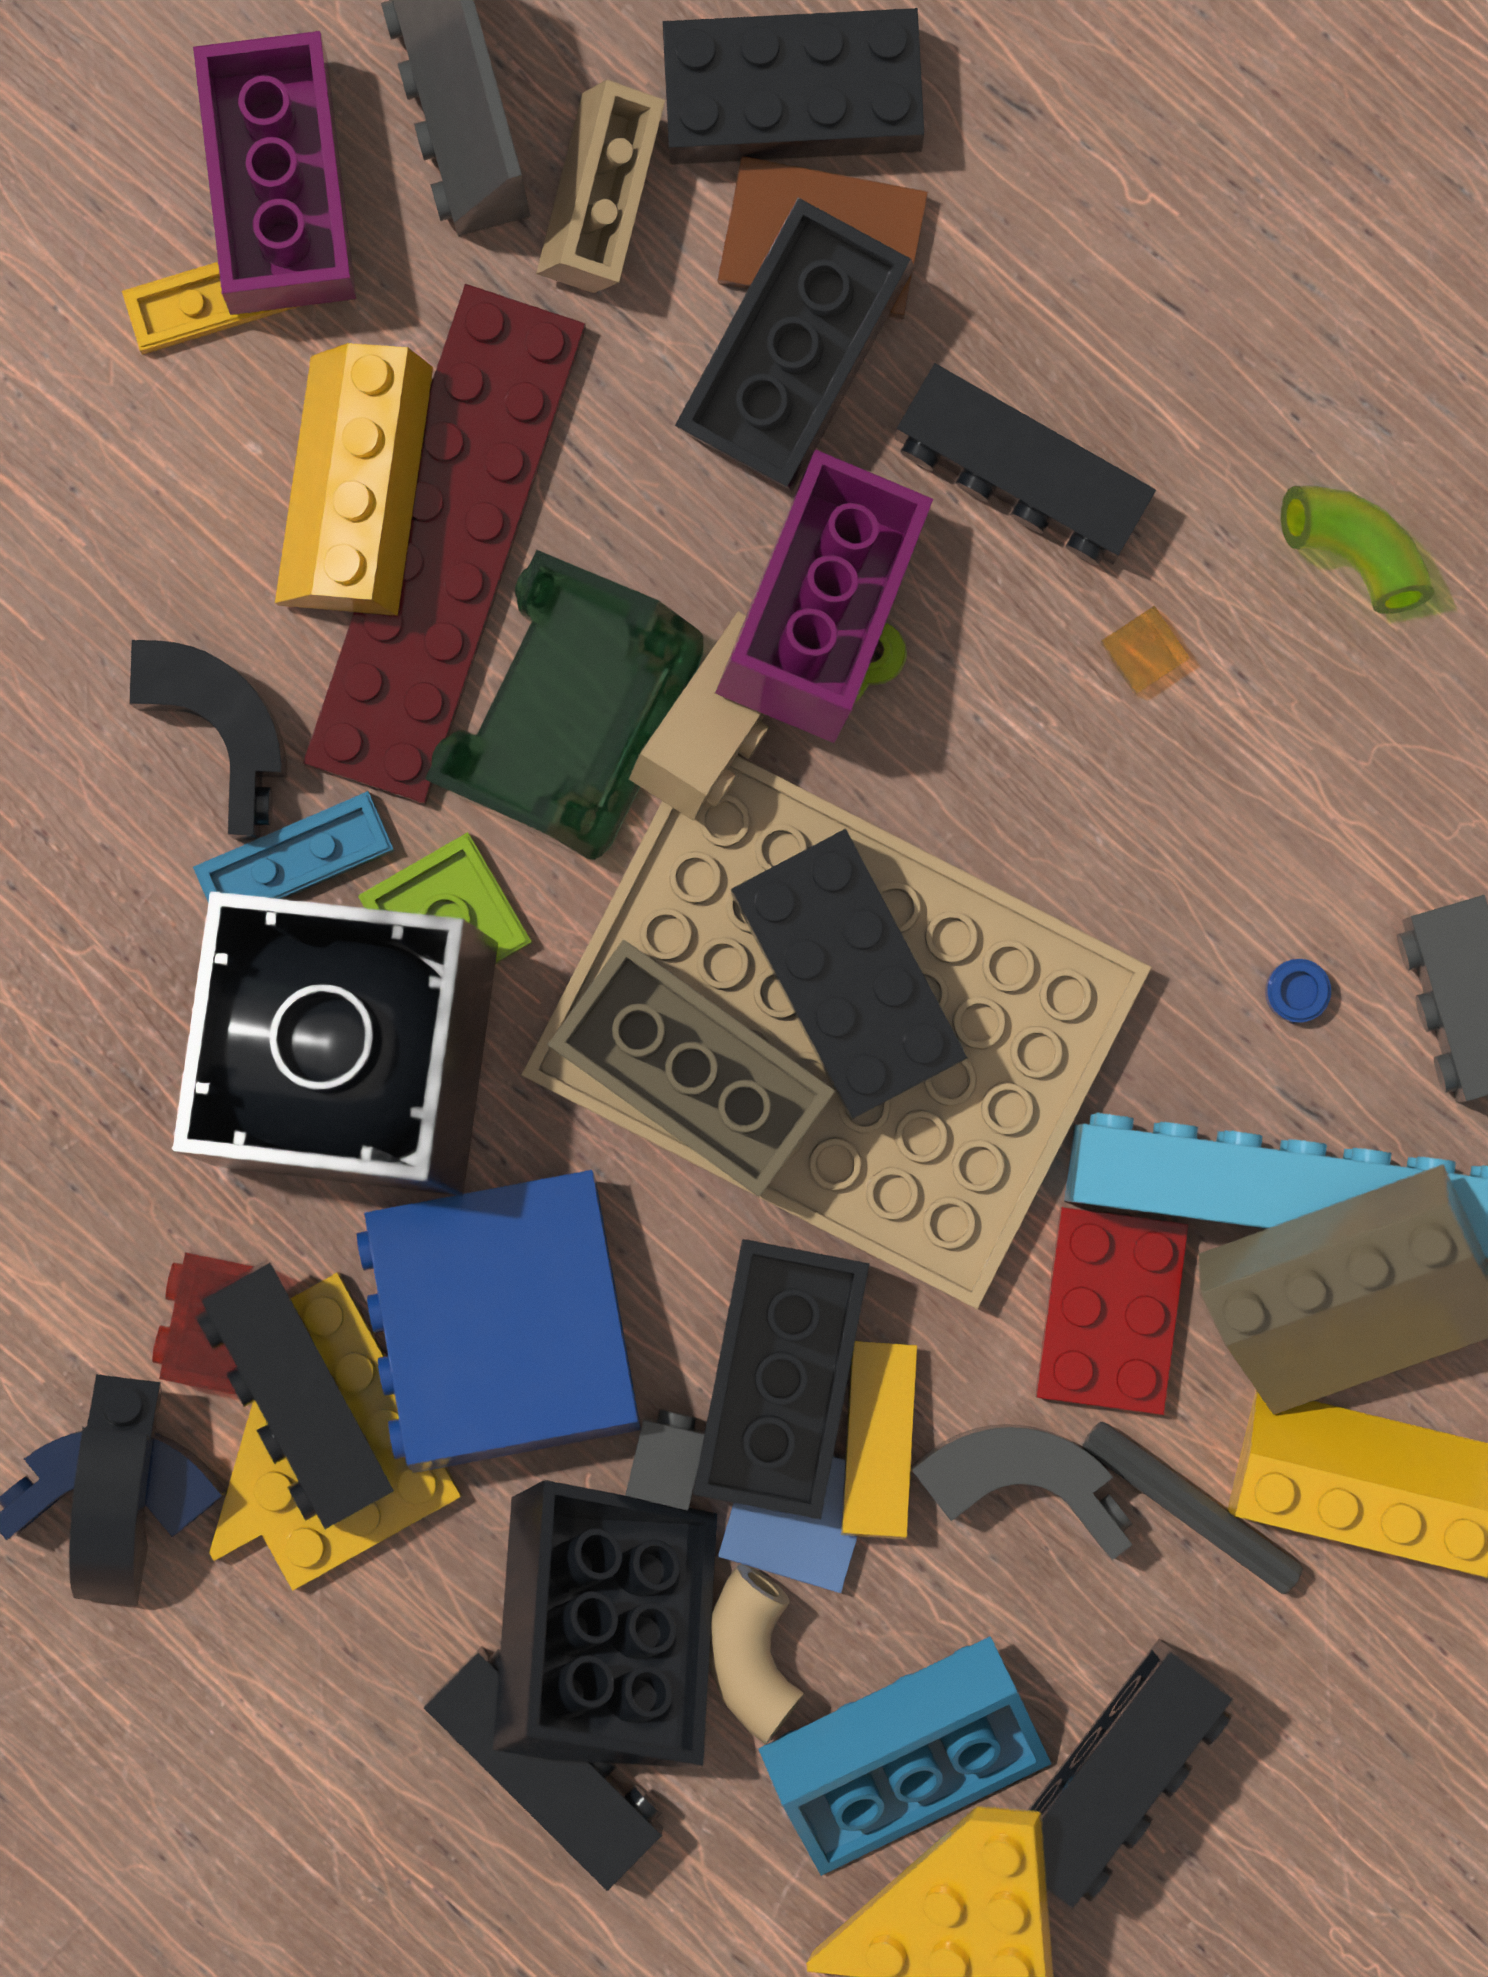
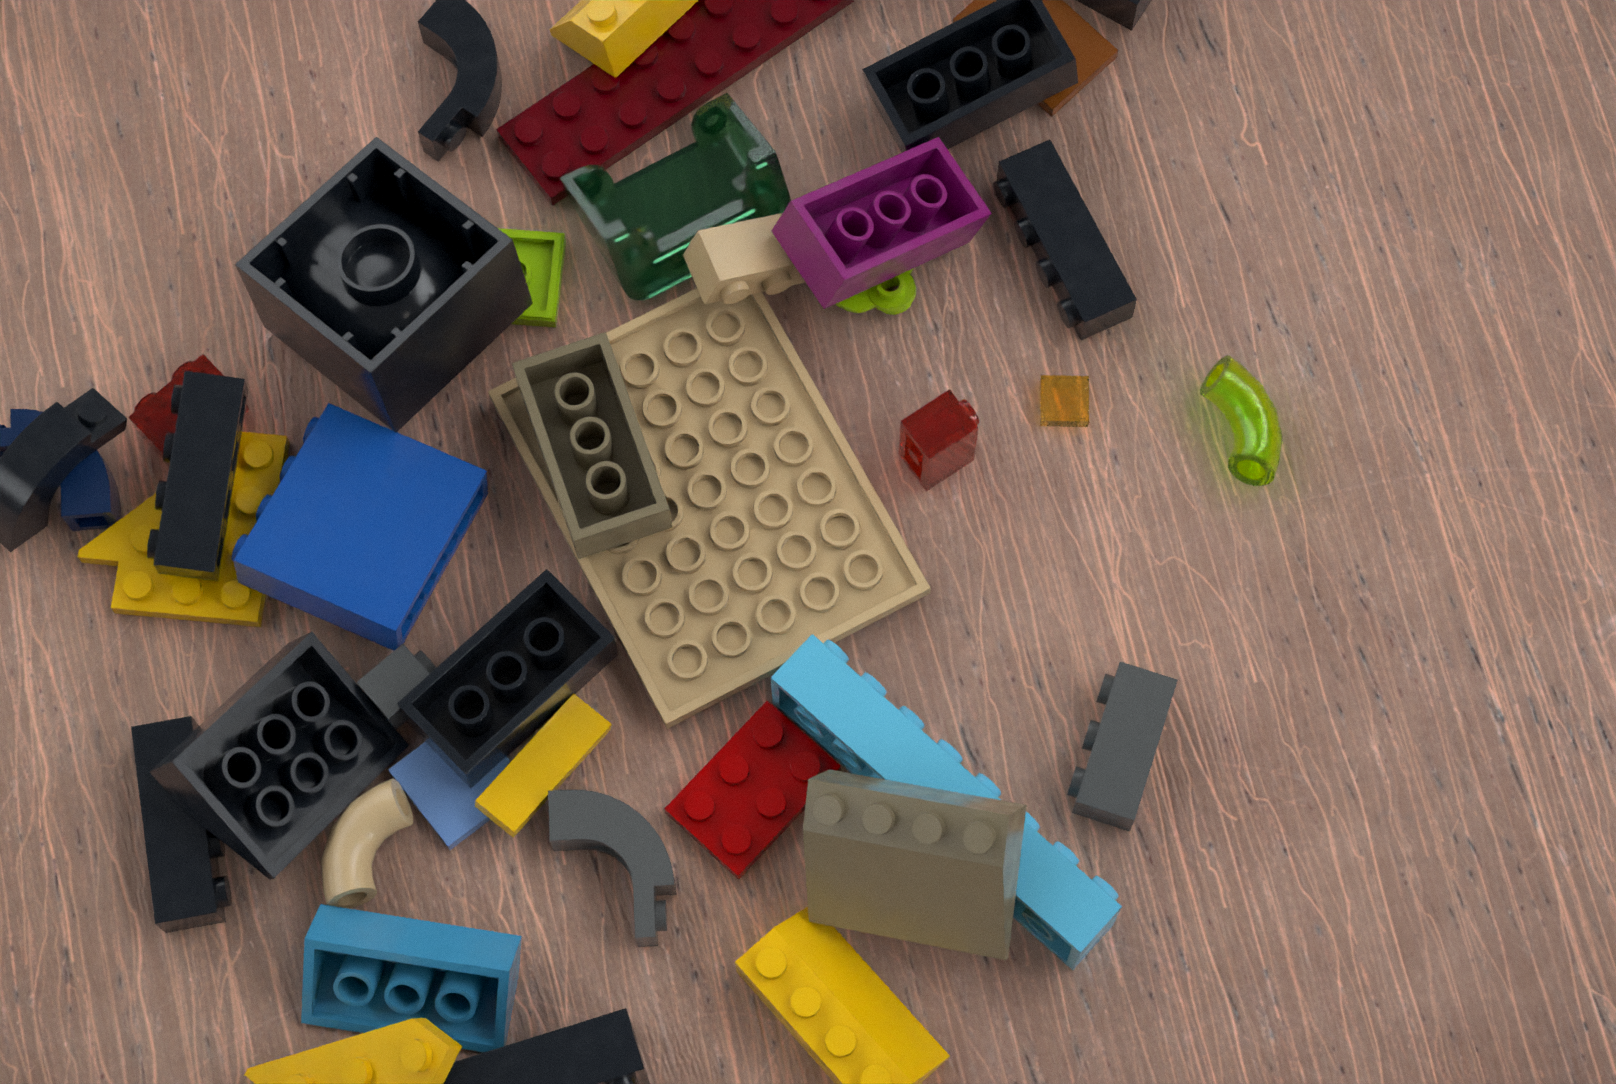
camera: 35 degrees right, 15 degrees down
(300, 853) = (481, 186): dark azure tile -> none
(848, 974) = (731, 457): black brick -> none
(1054, 798) = (939, 439): none -> clear red brick
(1192, 1507) = (714, 951): dark grey axle -> none
(1298, 991) = (1016, 671): blue tile -> none

